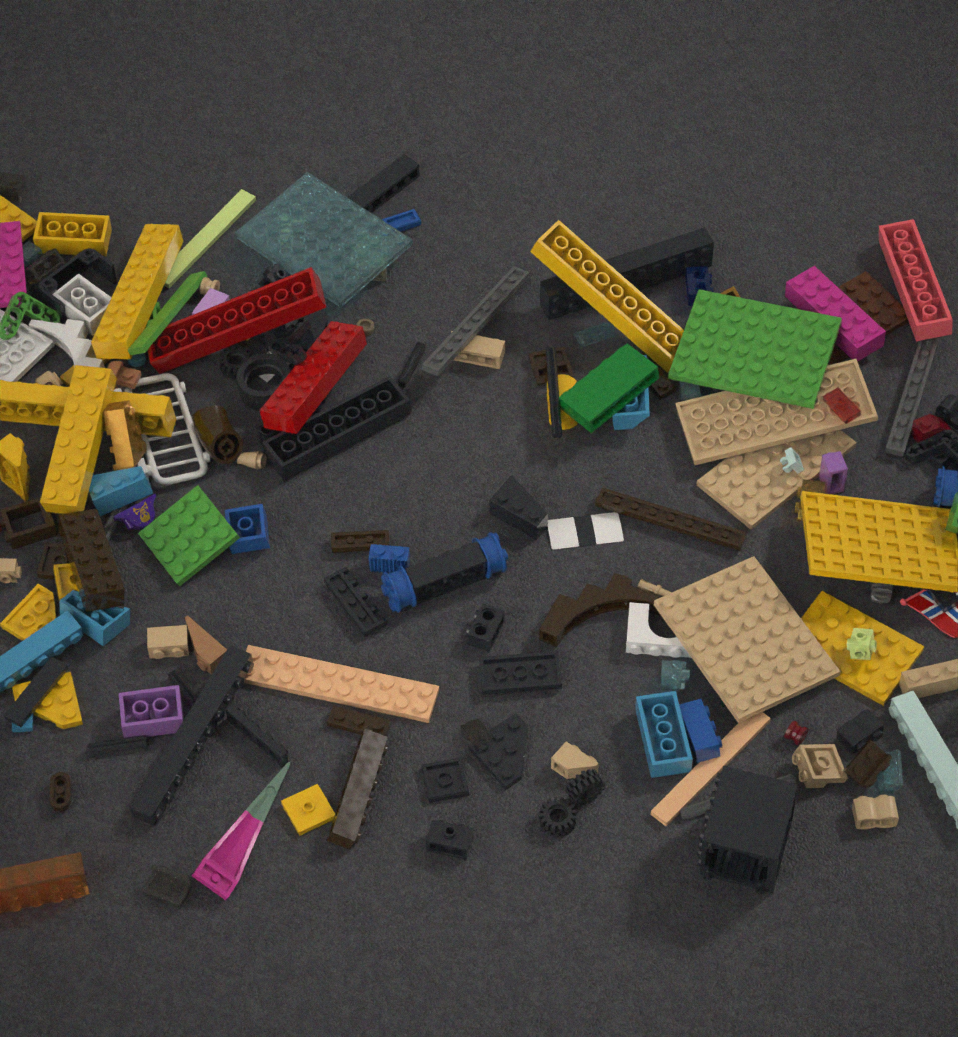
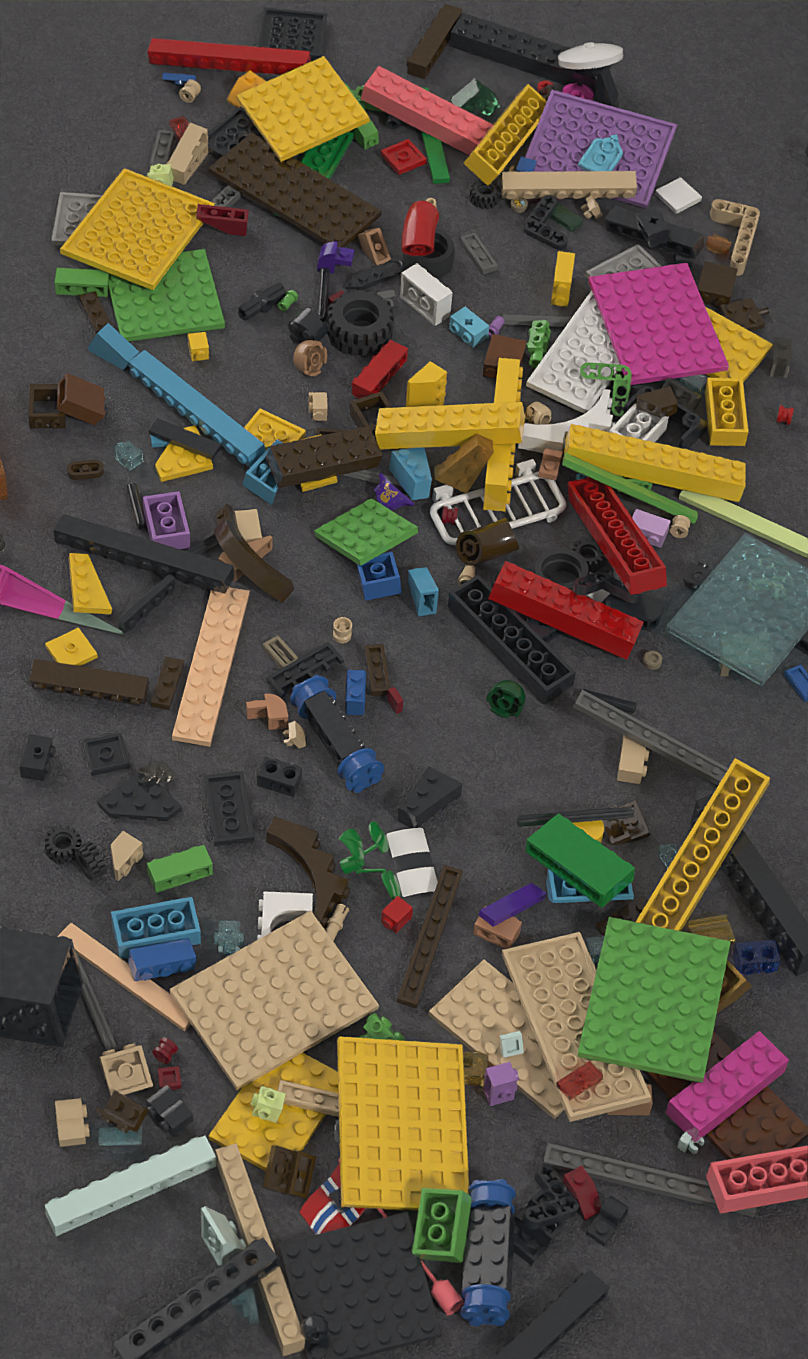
camera: 80 degrees right, 0 degrees up
(45, 749) = (128, 455): none -> clear light blue brick
(68, 273) = (658, 402): none -> dark brown slope
(80, 193) = (785, 415): none -> red wheel
(169, 465) = (449, 515): none -> dark red wheel
(205, 641) = (247, 559): none -> dark brown arch
(226, 792) = (86, 587): none -> yellow wing
(269, 491) = (423, 591): none -> dark azure slope
(309, 566) = (342, 630): none -> tan wheel
(332, 625) = (279, 659): none -> dark tan tile
(400, 528) = (395, 700): none -> dark red tile
(404, 629) = (271, 708): none -> nougat brick
(408, 435) = (506, 699): none -> dark green cylinder
(436, 611) = (296, 735): none -> tan tile
(591, 571) = (356, 860): none -> green plant
(591, 715) = (179, 868): none -> bright green brick
(645, 449) = (512, 904): none -> dark purple tile
(648, 542) = (396, 914): none -> red brick
(664, 466) = (501, 934): none -> nougat brick
(673, 309) = (713, 927): none -> clear yellow plate
(777, 560) = (380, 1028): none -> bright green brick
(825, 731) = (170, 1077): none -> dark red plate
(850, 611) = (310, 1098): none -> tan tile
(879, 354) = (686, 1142): none -> light aqua tile
(922, 637) = (289, 1172): none -> dark brown slope

